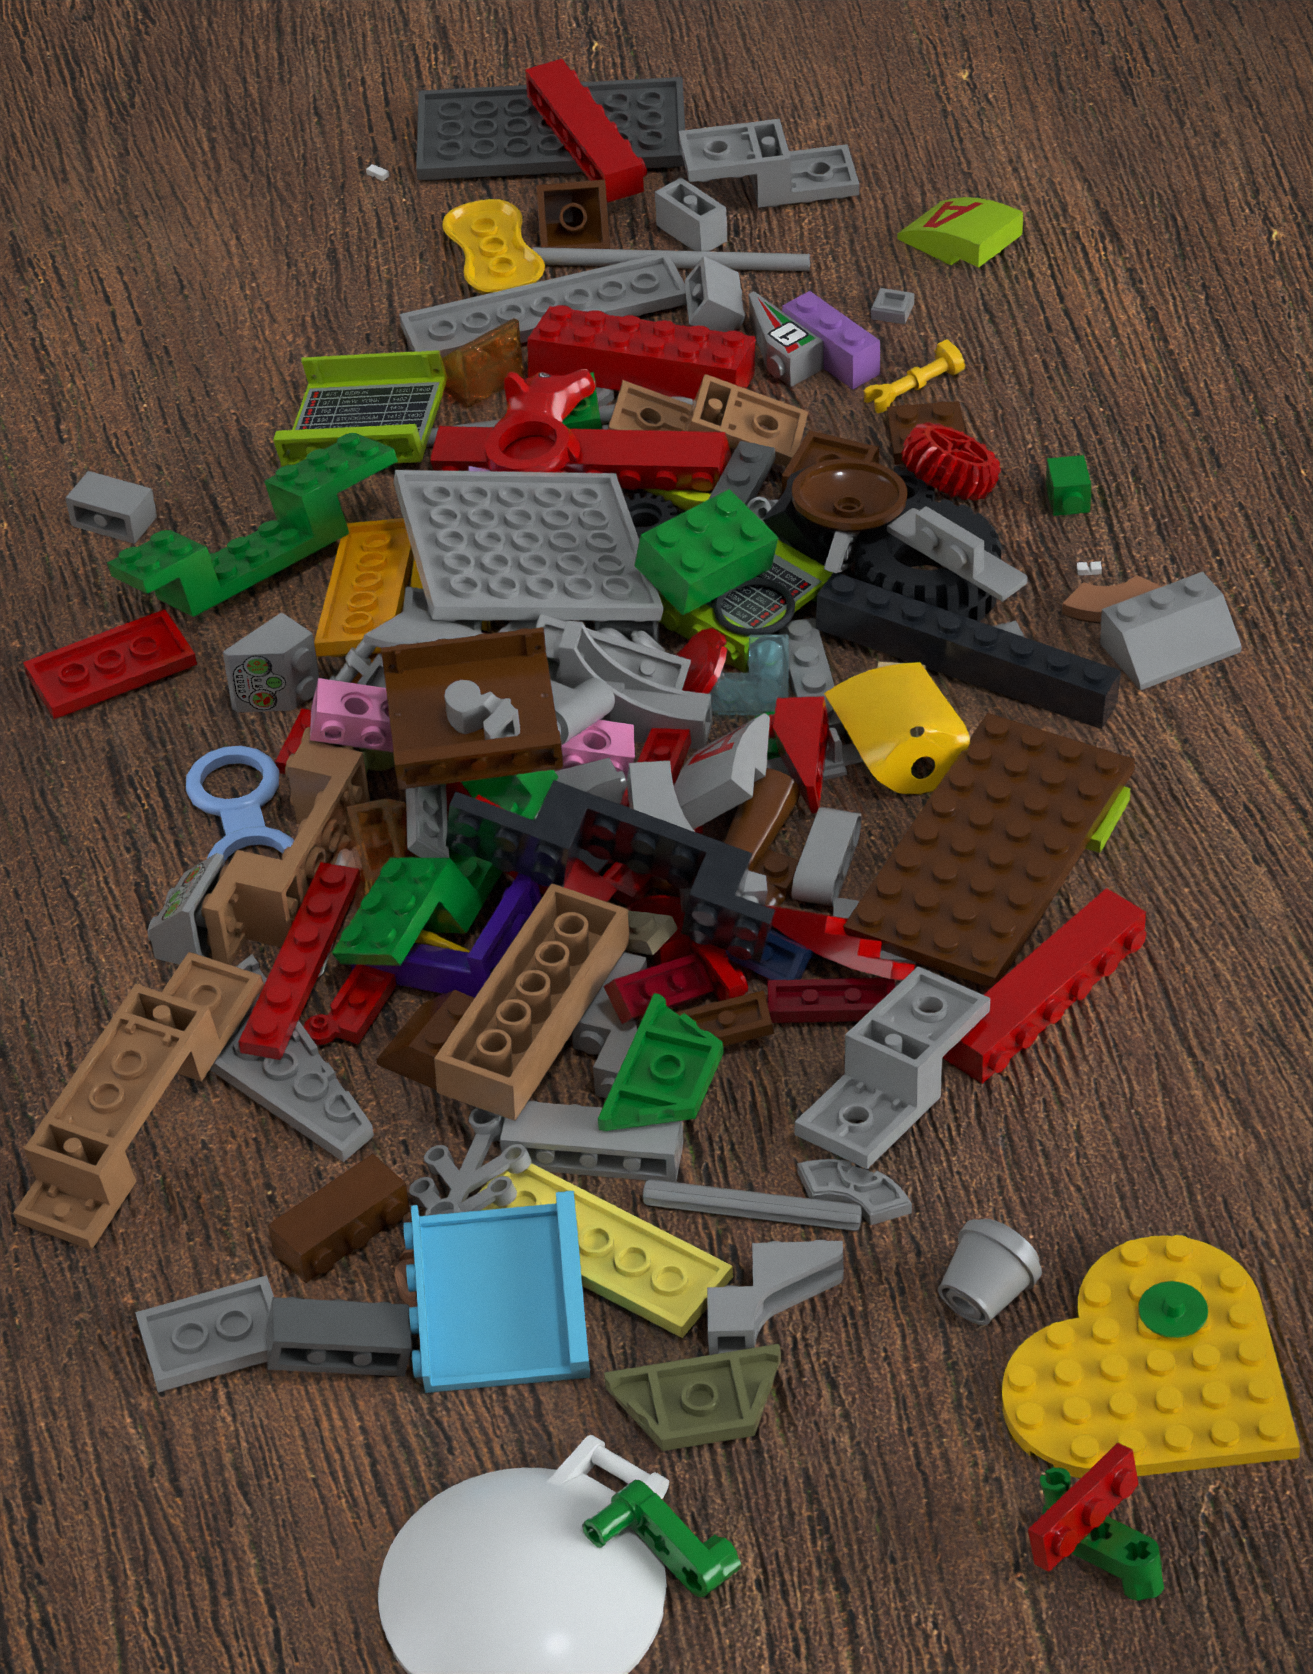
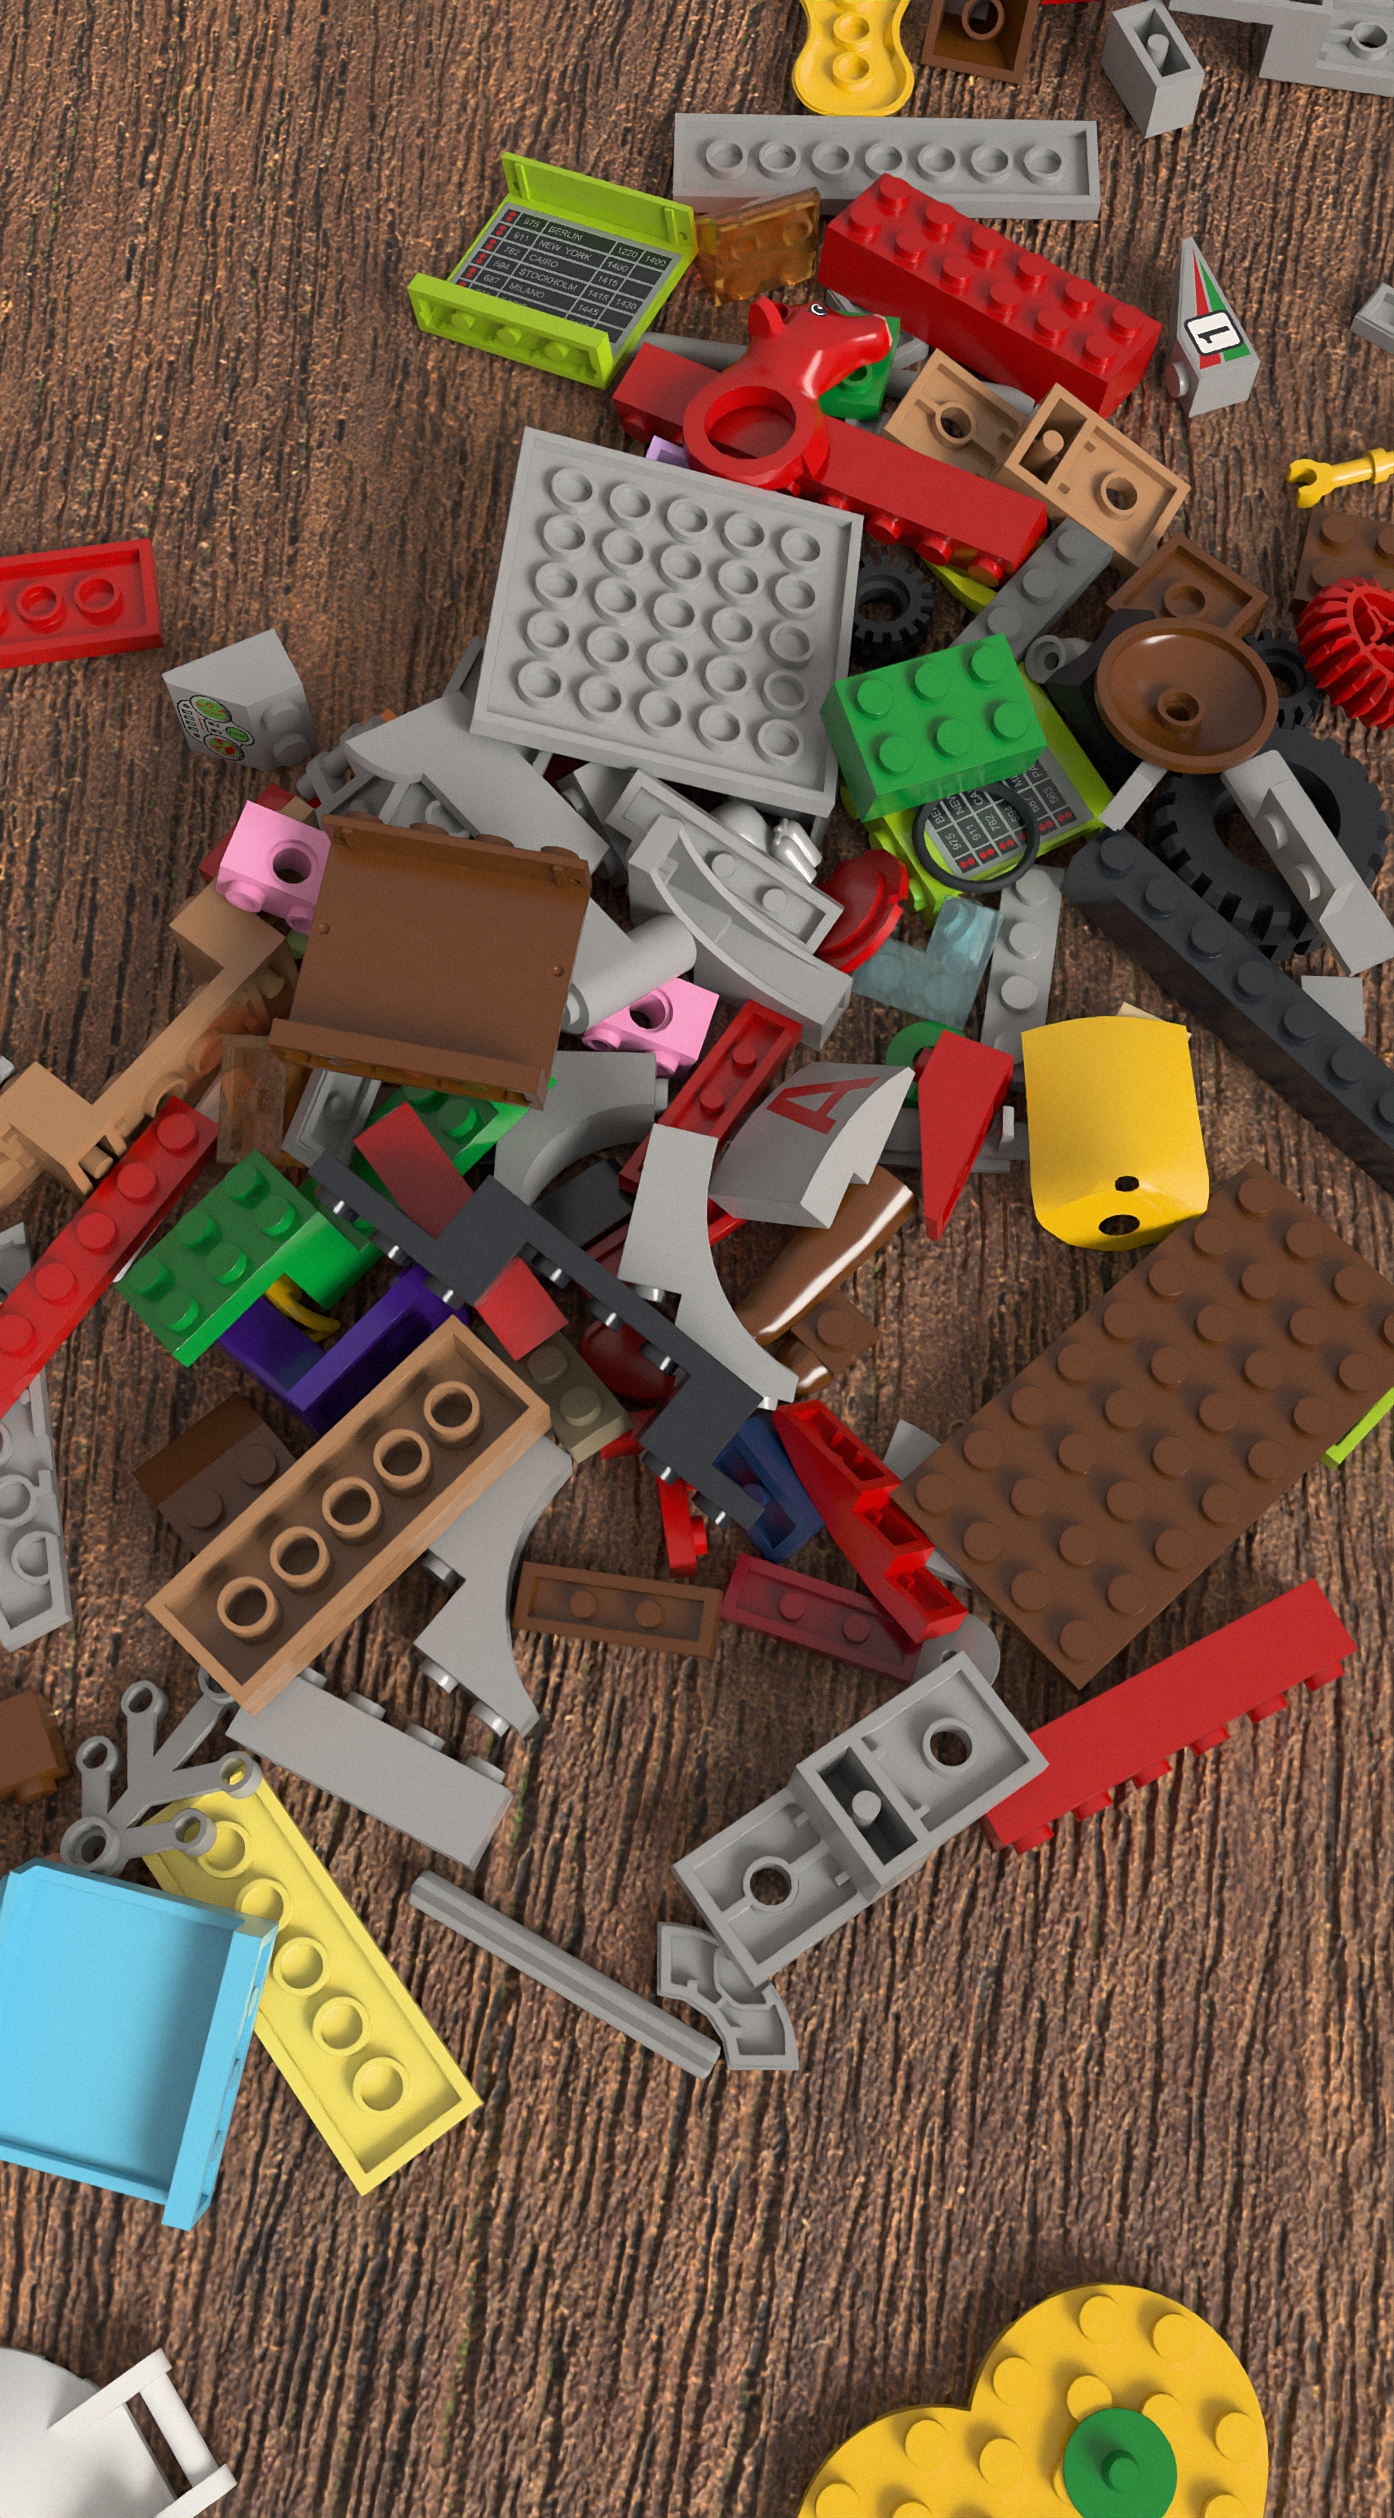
camera: 15 degrees right, 25 degrees up
(111, 507) = (151, 327): light grey brick -> none
(242, 815) = (114, 948): light blue bar -> none
(306, 521) = (329, 479): green bracket -> none
(353, 1006) = (120, 1383): red hinge -> none
(364, 584) = (423, 608): light orange plate -> none
(471, 711) = (428, 972): light grey leg -> none
(662, 1071) = (504, 1709): green wing -> none
(675, 980) = (565, 1527): dark red plate -> none
(681, 259) = (1110, 135): light grey piece -> none
(698, 1396) = (341, 2337): olive wing -> none
(714, 296) = (1131, 228): light grey brick -> none
(781, 1278) = (541, 2149): light grey arch -> none
(826, 856) = (916, 1336): light grey beam -> none
(847, 348) = (1294, 384): medium lavender brick -> none
(988, 1270) = (856, 2288): light grey piece -> none

